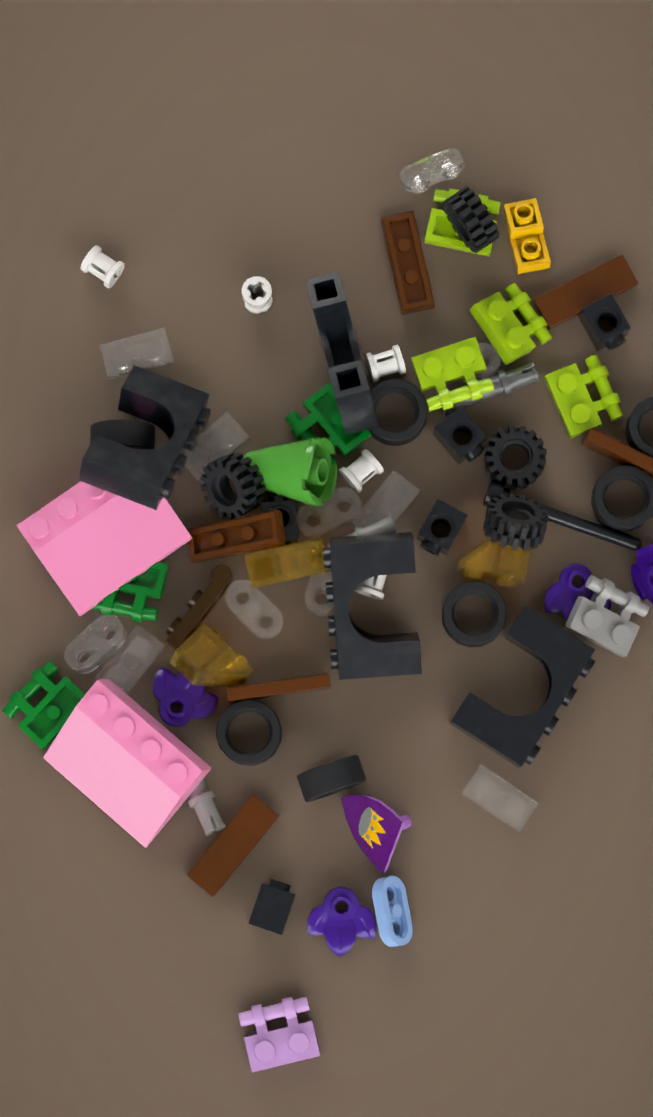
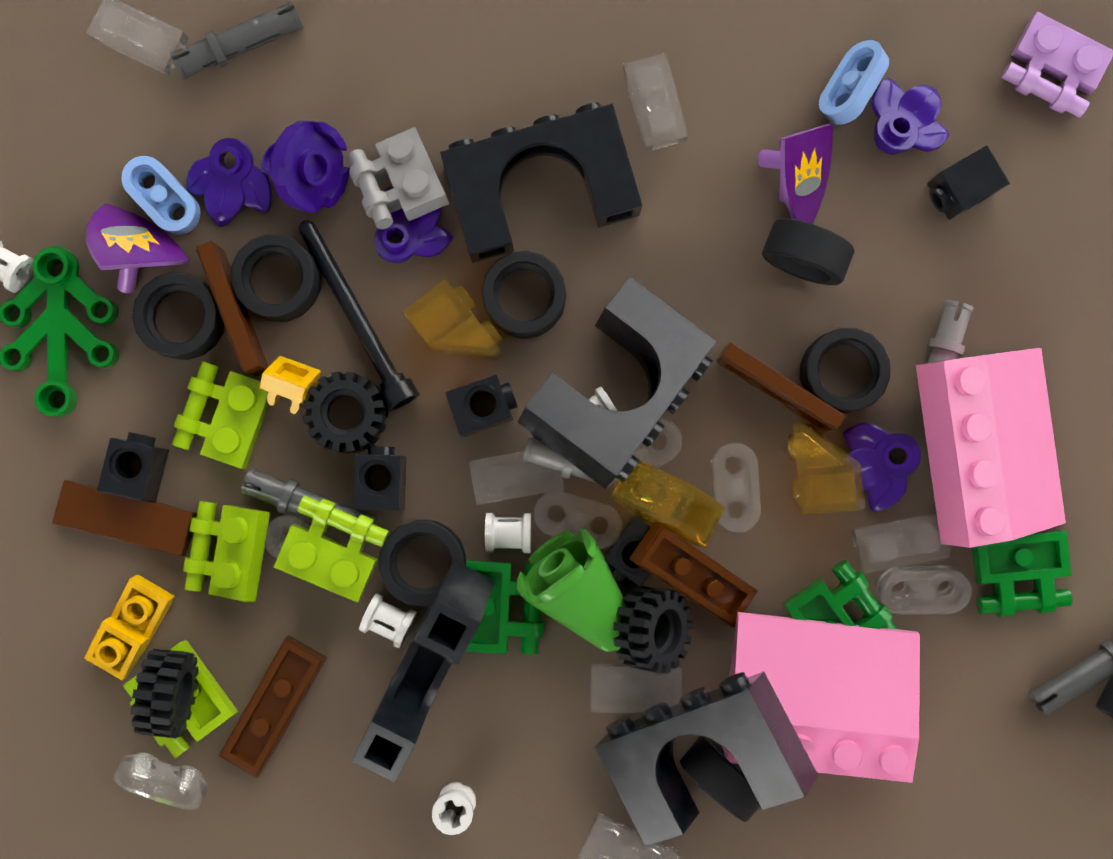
camera: 135 degrees left, 5 degrees up
(200, 607) = (786, 536): dark brown plate -> none
(232, 845) = (951, 277): reddish brown tile -> none
(515, 522) = (422, 347): black tyre -> none
(562, 447) = (289, 380): none -> yellow tile

